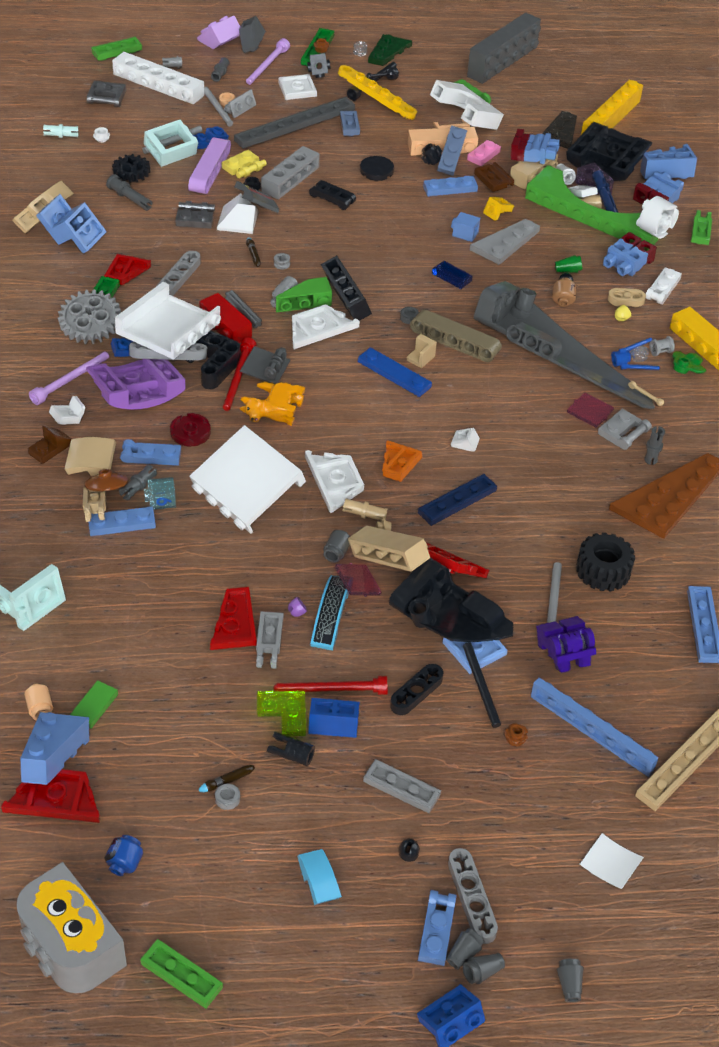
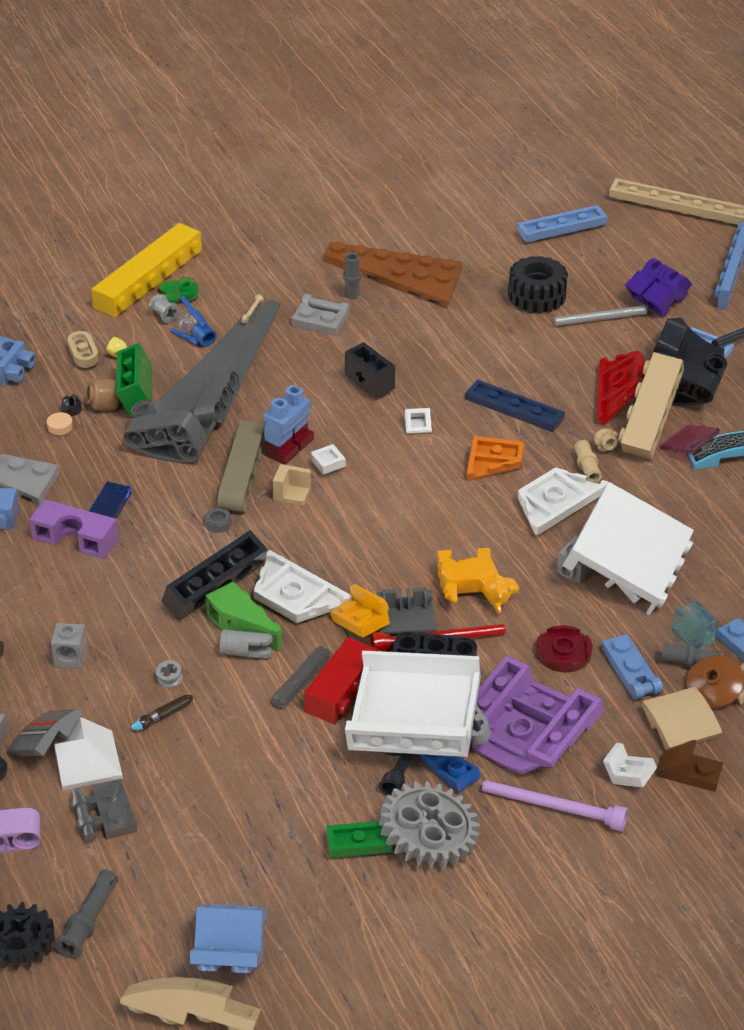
camera: 110 degrees left, 5 degrees down
(126, 268) = (291, 837): red wing -> none
(182, 276) = (264, 769): light grey beam -> none
(271, 341) = (363, 613): none -> light orange bracket
(324, 224) = (69, 645): none -> light grey brick
(336, 546) = (657, 464): dark grey brick -> none
(395, 372) = (338, 504): blue plate -> none
(422, 257) = (94, 531): none -> medium lavender arch
(441, 377) = (328, 459): none -> white plate
(475, 355) = (287, 426): none -> medium blue hips
(527, 420) = (370, 370): none -> black brick
(547, 272) = (59, 423): none -> light nougat tile
(569, 265) = (39, 403): green cone -> none
(570, 304) = (133, 376): none -> green brick
(590, 410) = (301, 345): clear pink piece -> none
(663, 285) = (39, 329): white plate -> none

